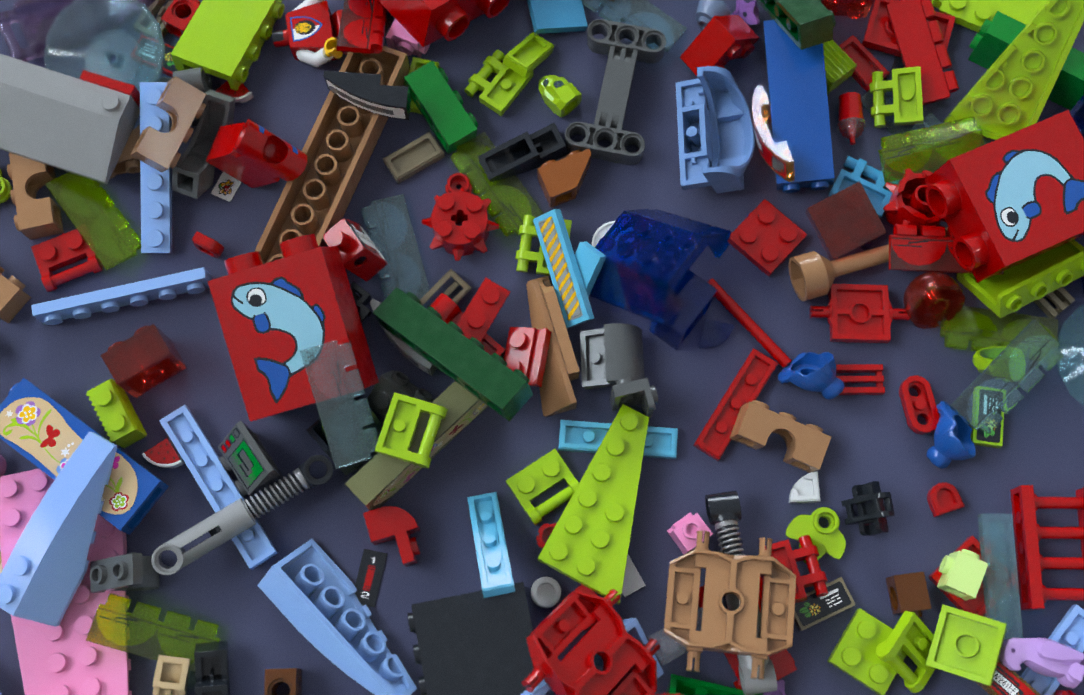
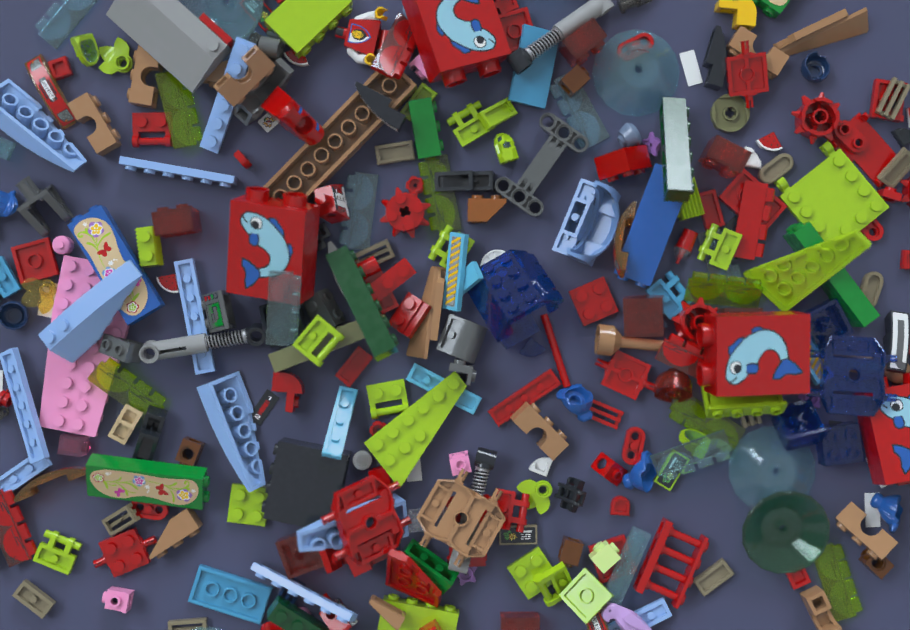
camera: 25 degrees right, 15 degrees up
(477, 462) = (354, 366): none -> red tile
(908, 451) = (612, 471): none -> red bracket

